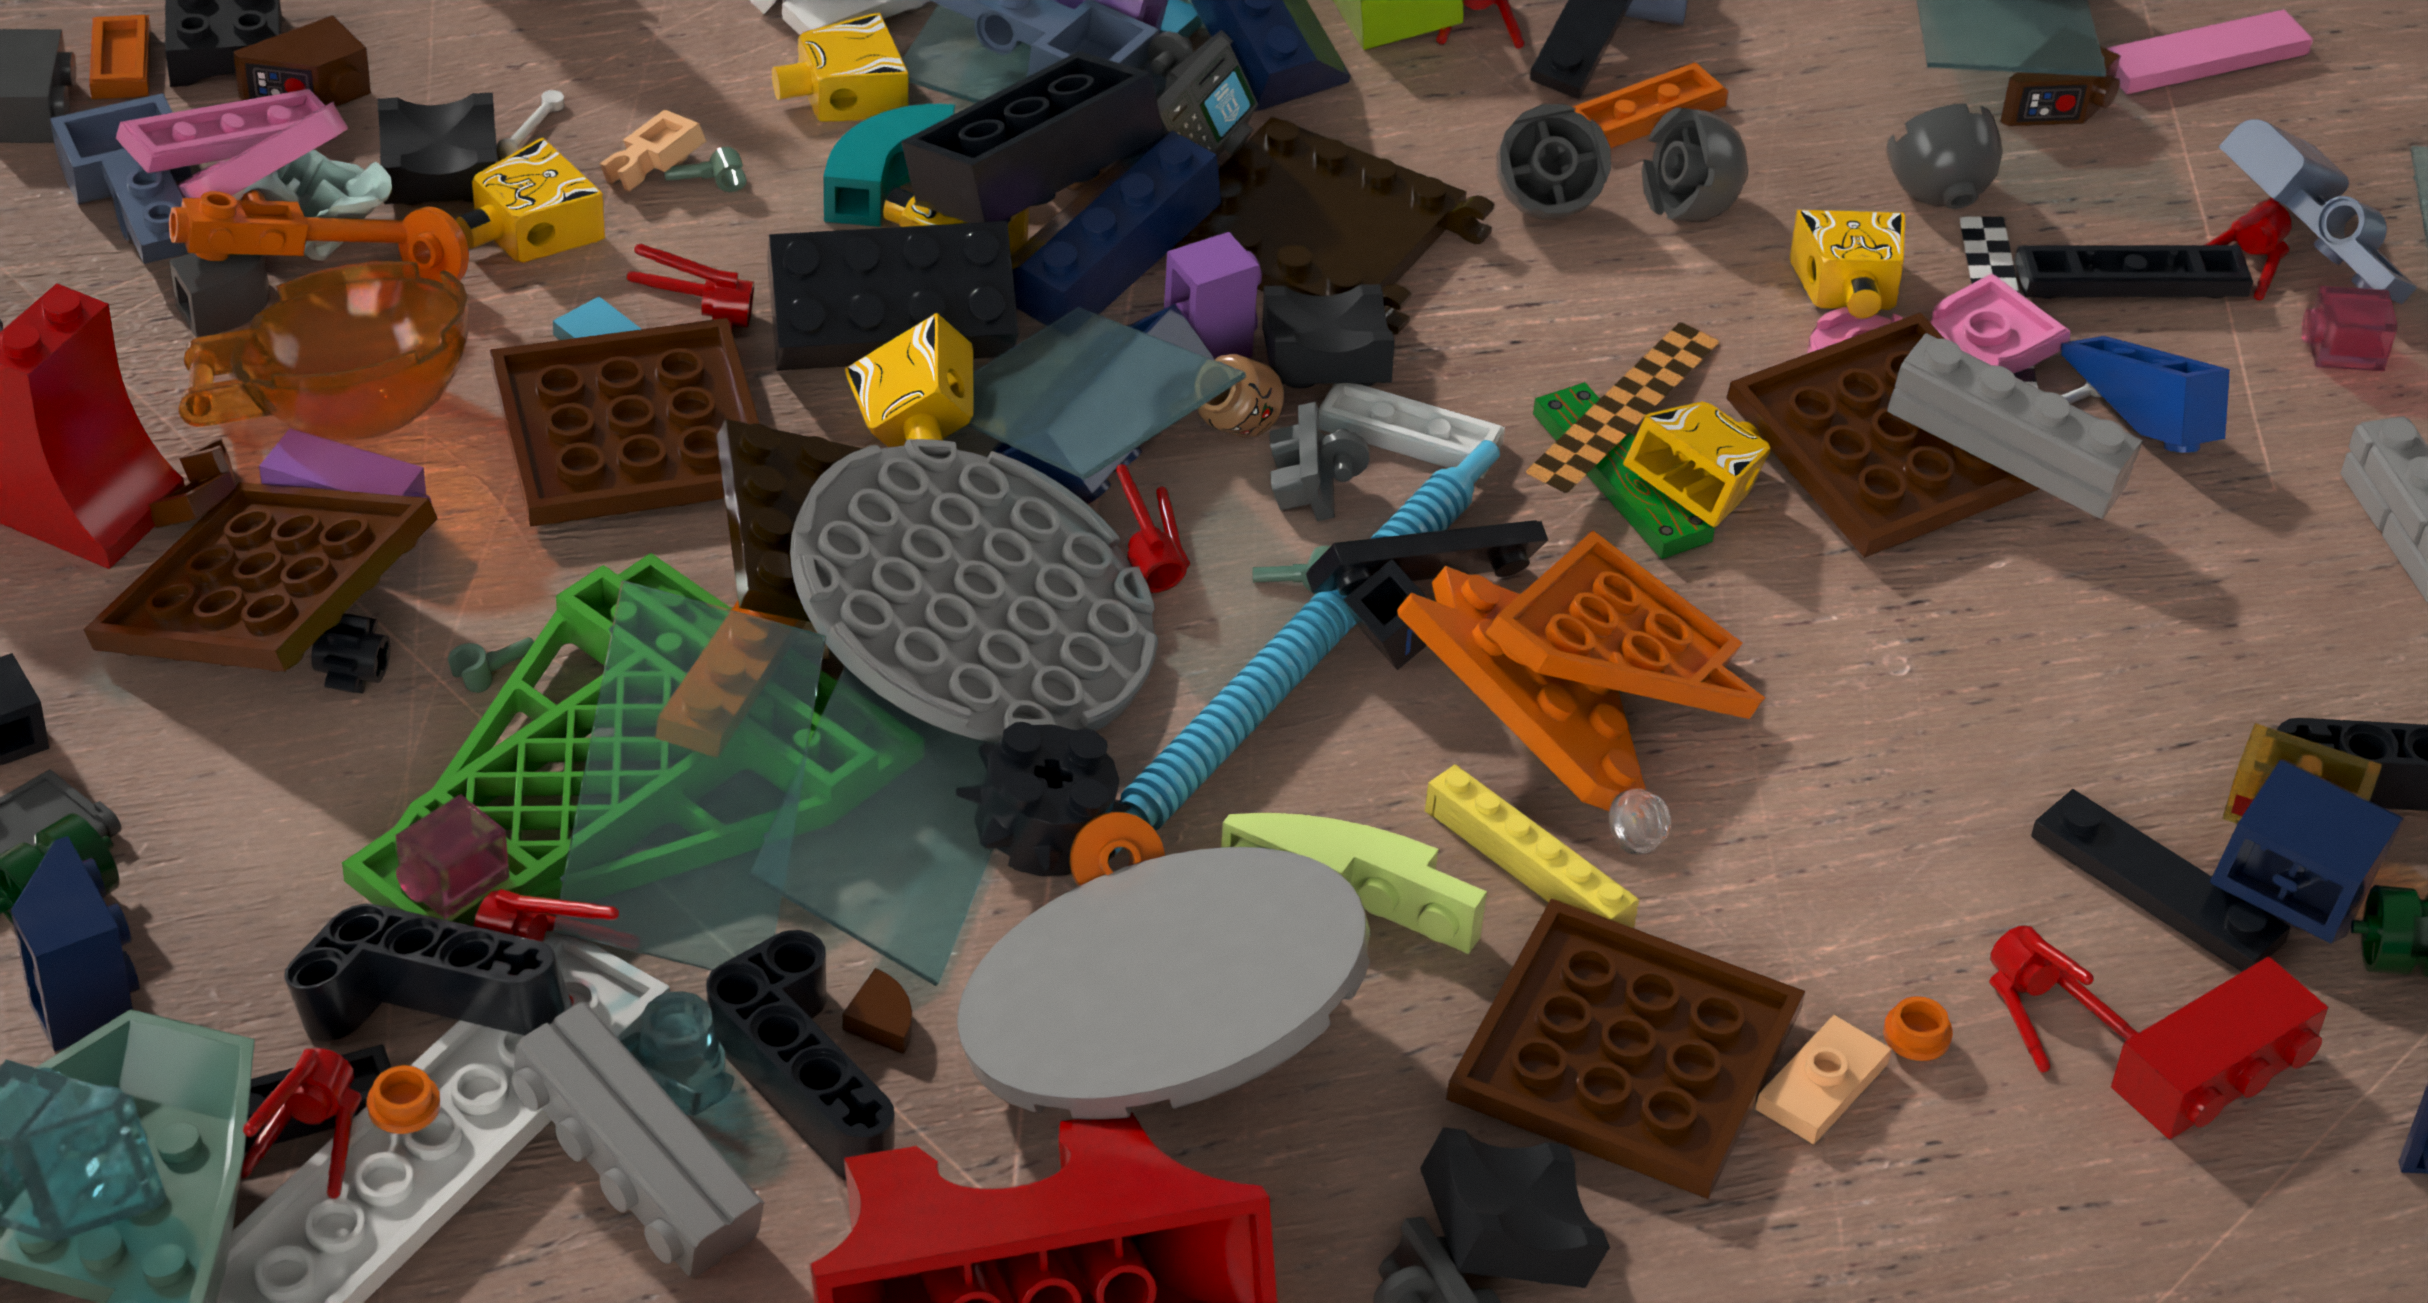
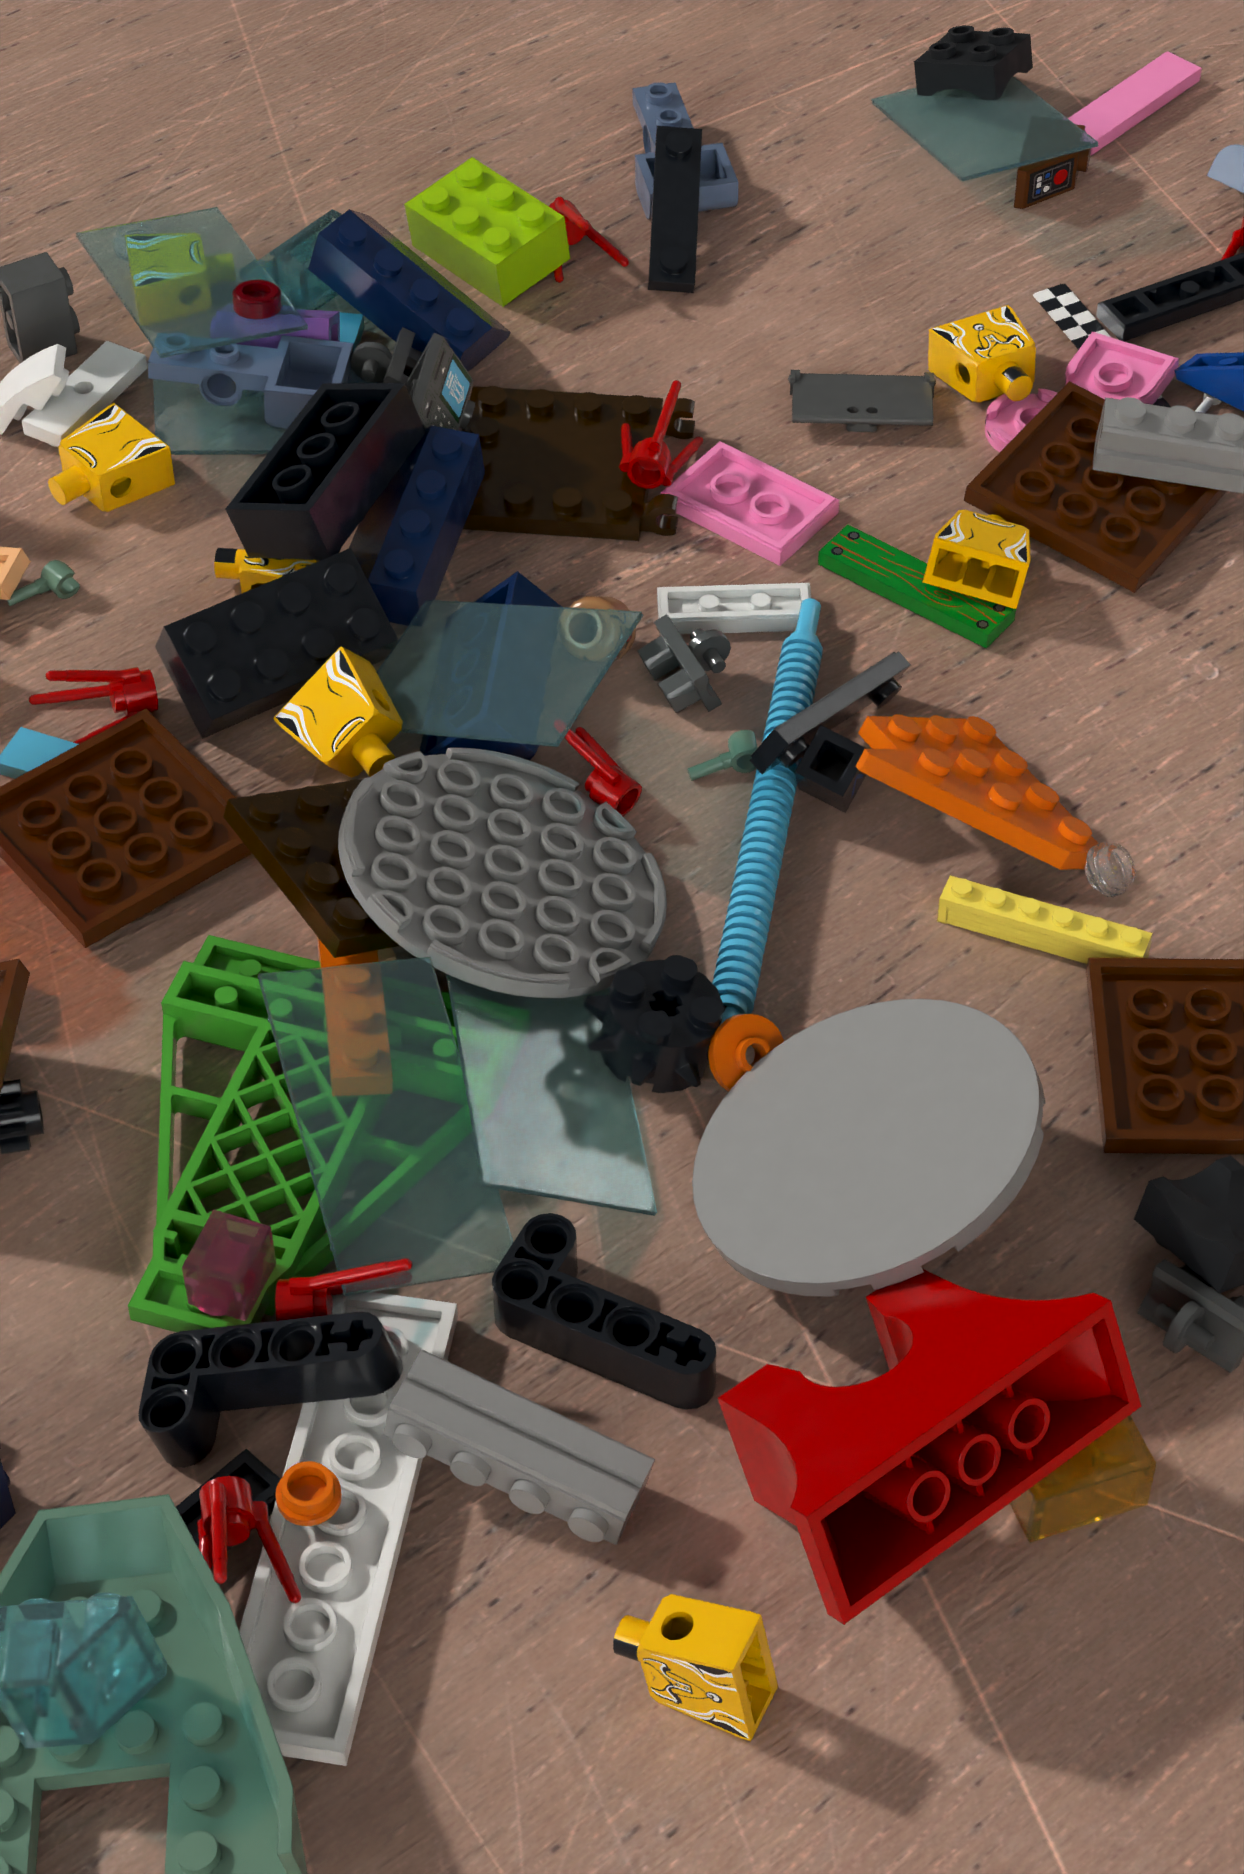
camera: 20 degrees left, 5 degrees up
(476, 666) = (121, 1080): sand green hand -> none
(682, 1051) = (500, 1351): clear light blue piece -> none
(872, 163) = (185, 524): teal arch -> none
(880, 1012) = (632, 1256): reddish brown tile -> none
(1216, 292) = (538, 546): medium lavender brick -> none
(1328, 337) = (636, 555): black brick -> none
(1387, 870) = (949, 976): yellowish green slope -> none
(1404, 244) = (650, 460): none -> red plant
(1497, 328) = (751, 503): none -> bright pink tile
(1553, 162) = (724, 352): dark grey cylinder -> none
(1622, 407) = (888, 536): clear orange sticker -> none
(1622, 630) = (1016, 722): orange wing -> none
(1639, 107) = (749, 283): orange tile -> none
(1689, 263) = (862, 400): none -> dark grey door
(1694, 166) = (825, 319): dark grey cylinder -> none
(1947, 155) = (1008, 249): dark grey cylinder -> none

